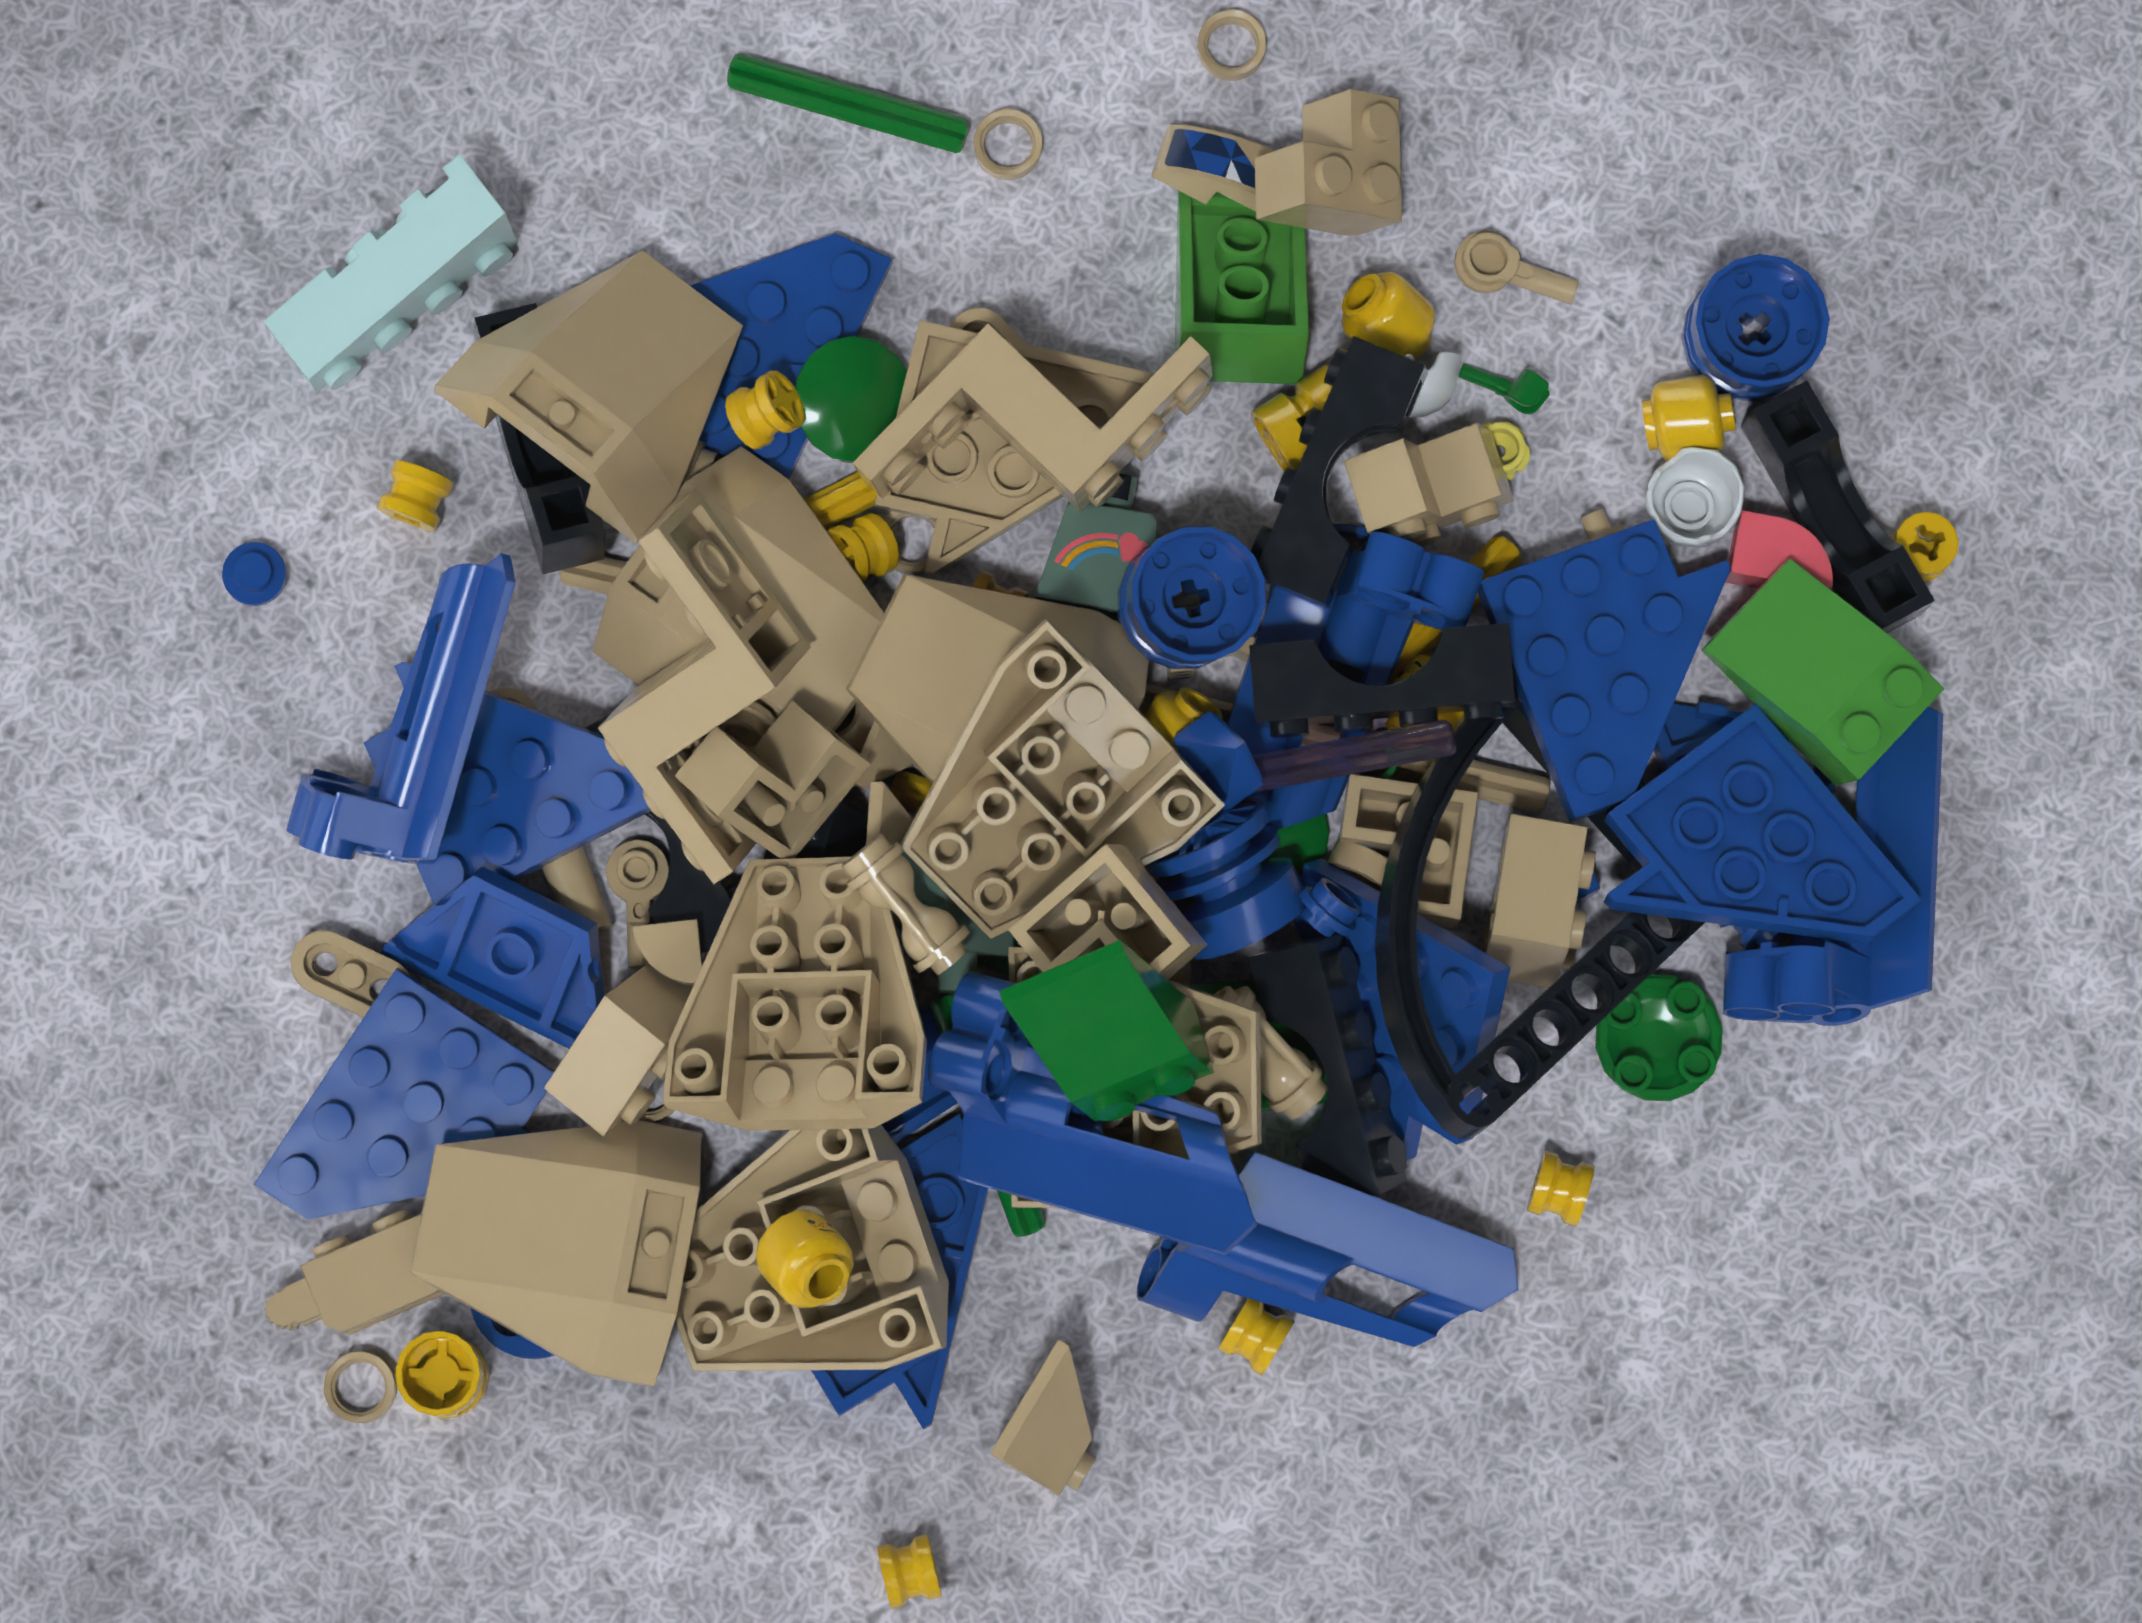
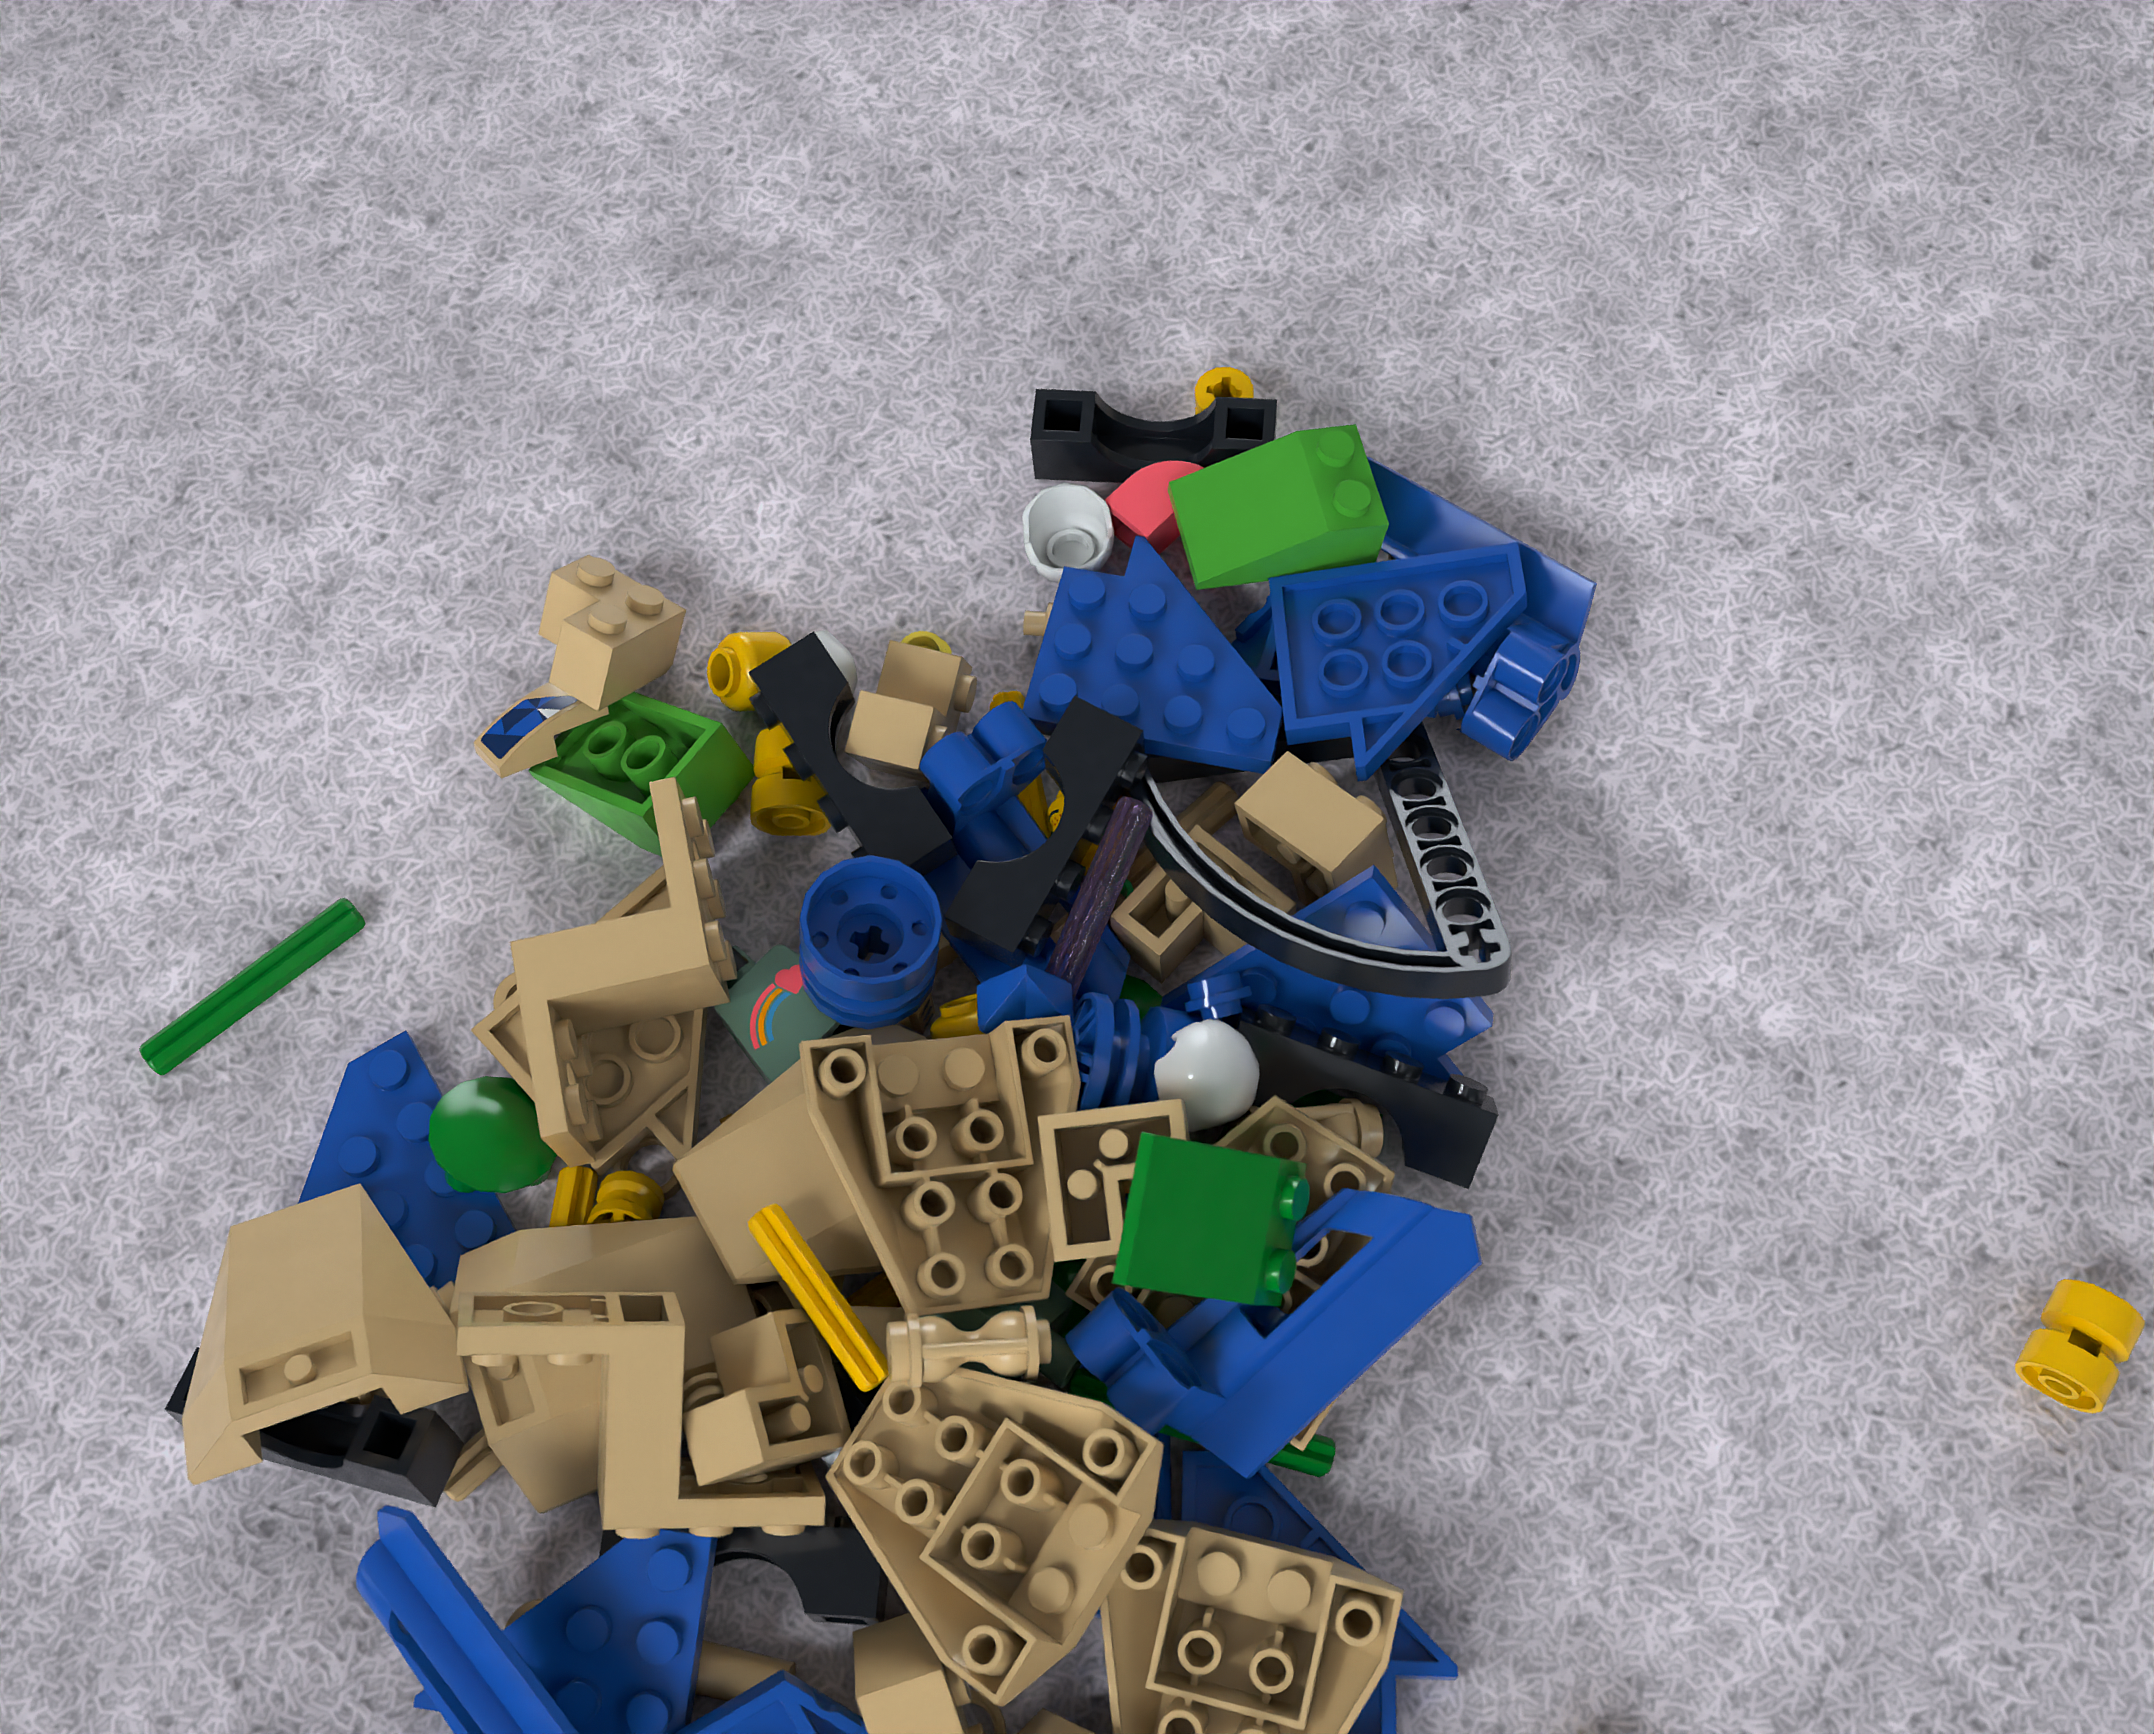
camera: 50 degrees left, 15 degrees down
(394, 278) = (78, 1465): light aqua wedge -> none
(415, 495) = (279, 1582): yellow wheel -> none
(637, 876) = (767, 1608): tan plate -> none
(672, 949) = (857, 1611): tan tile -> none
(764, 410) = (443, 1207): yellow wheel -> none
(804, 1259) = (1235, 1670): yellow head -> none
(875, 763) = (819, 1297): none -> yellow axle
(1006, 116) = (374, 860): tan piece -> none
(1050, 1428) = (1526, 1550): tan slope -> none
(1233, 17) = (434, 645): tan piece -> none
(1249, 946) = (1210, 1072): none -> white hair
(1256, 1335) = (1553, 1313): yellow wheel -> none
(1311, 1233) = (1502, 1185): blue panel -> none
(1360, 863) = (1189, 957): tan piece -> none
(1489, 263) = (770, 575): tan plate -> none
(1524, 394) = (892, 617): green hand -> none
(1561, 1188) = (1578, 977): yellow wheel -> none
(1660, 1039) = (1507, 823): green dish -> none
(1687, 415) = (995, 504): yellow head -> none
(1784, 304) = (962, 380): blue wheel -> none

